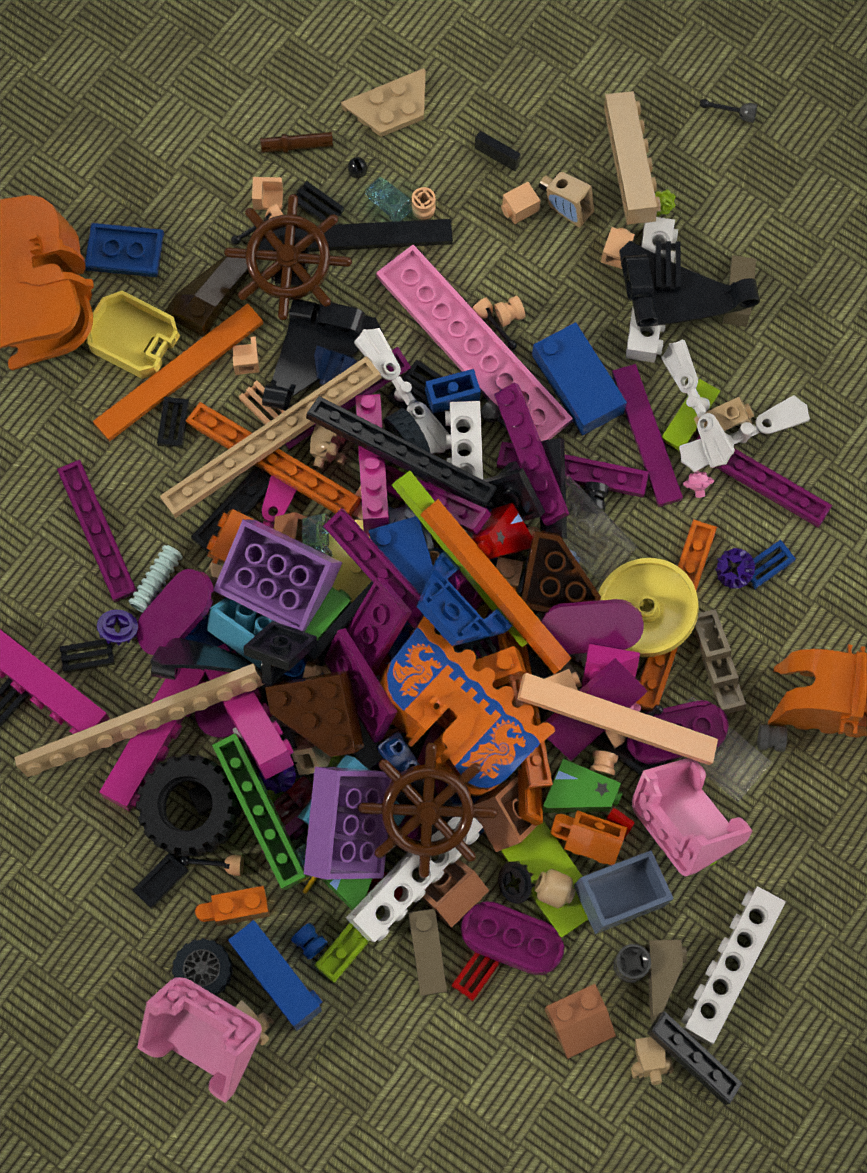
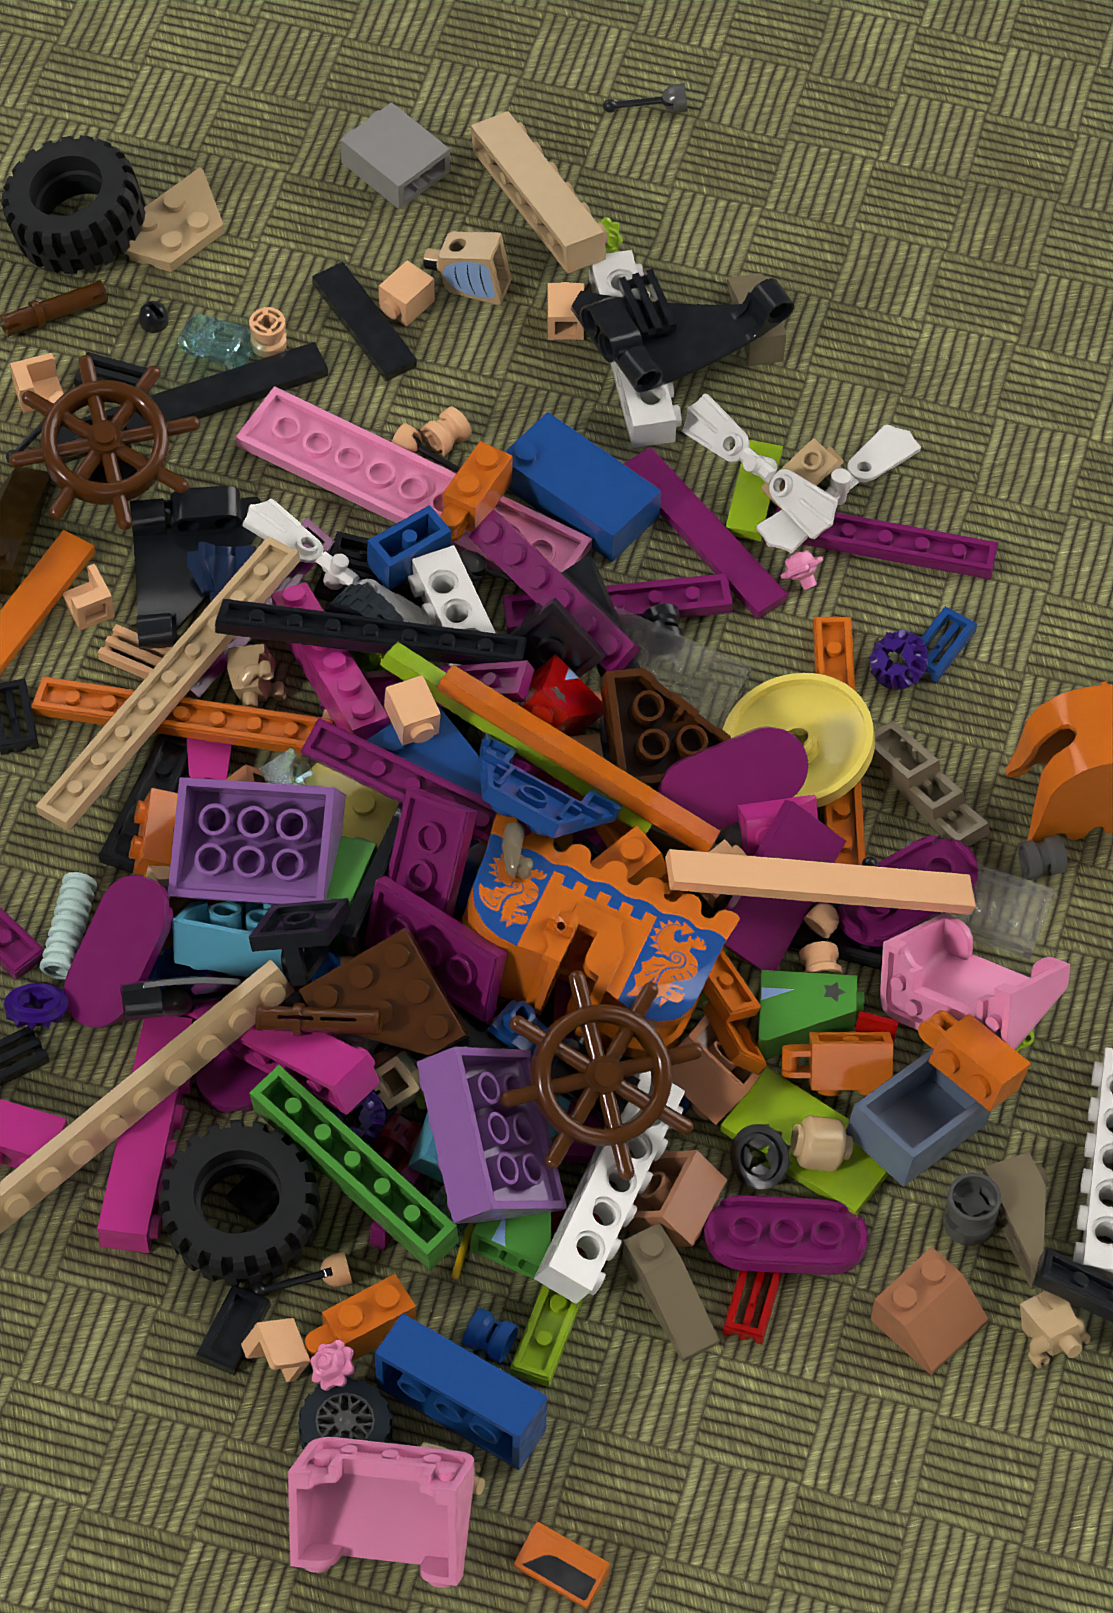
camera: 20 degrees left, 15 degrees down
(180, 906) = (280, 1344): none -> light nougat panel
(205, 932) = (332, 1365): none -> bright pink plant
(260, 709) = (272, 1019): none -> reddish brown pin
(297, 1104) = (562, 1565): none -> orange slope
(323, 50) = (60, 173): none -> black tyre
(399, 525) = (412, 710): none -> light nougat brick
(424, 644) = (511, 850): none -> dark tan arm
(488, 213) = (364, 321): none -> black tile
(497, 151) = (346, 239): black tile -> none
(508, 364) = (476, 489): none -> orange brick
(550, 98) = (395, 155): none -> light grey brick
(667, 870) = (974, 1058): none -> orange brick

